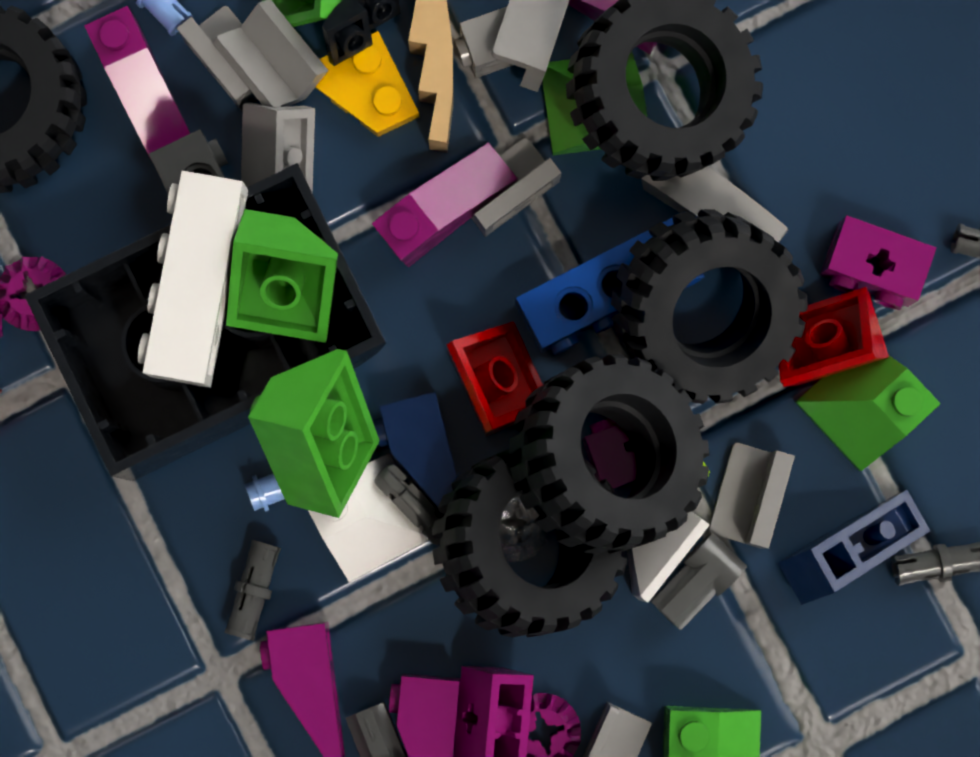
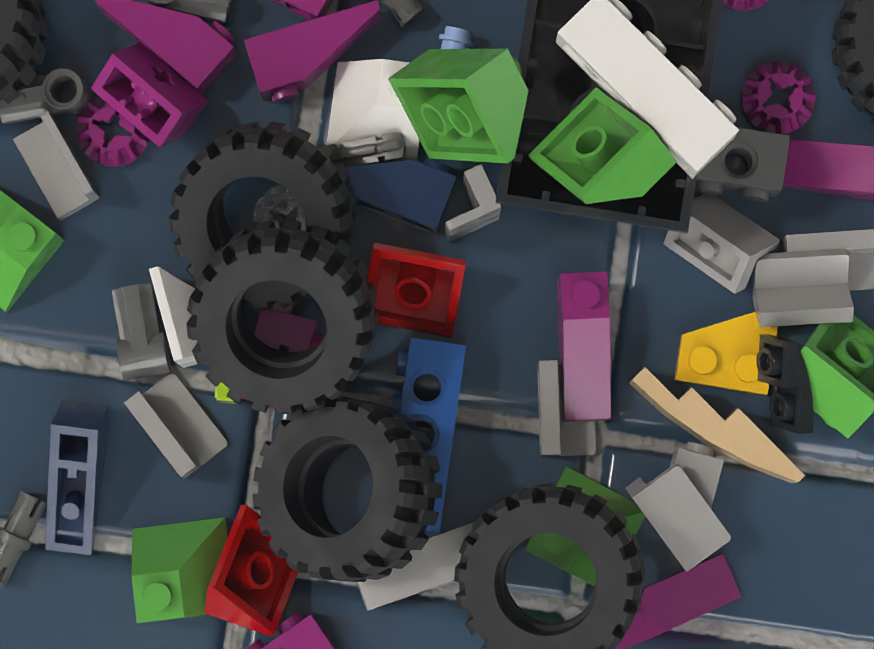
camera: 130 degrees right, 0 degrees up
(127, 212) = (775, 118): none -> magenta gear
(367, 618) = (302, 52): none -> magenta slope
(384, 369) = (483, 202): none -> light grey panel

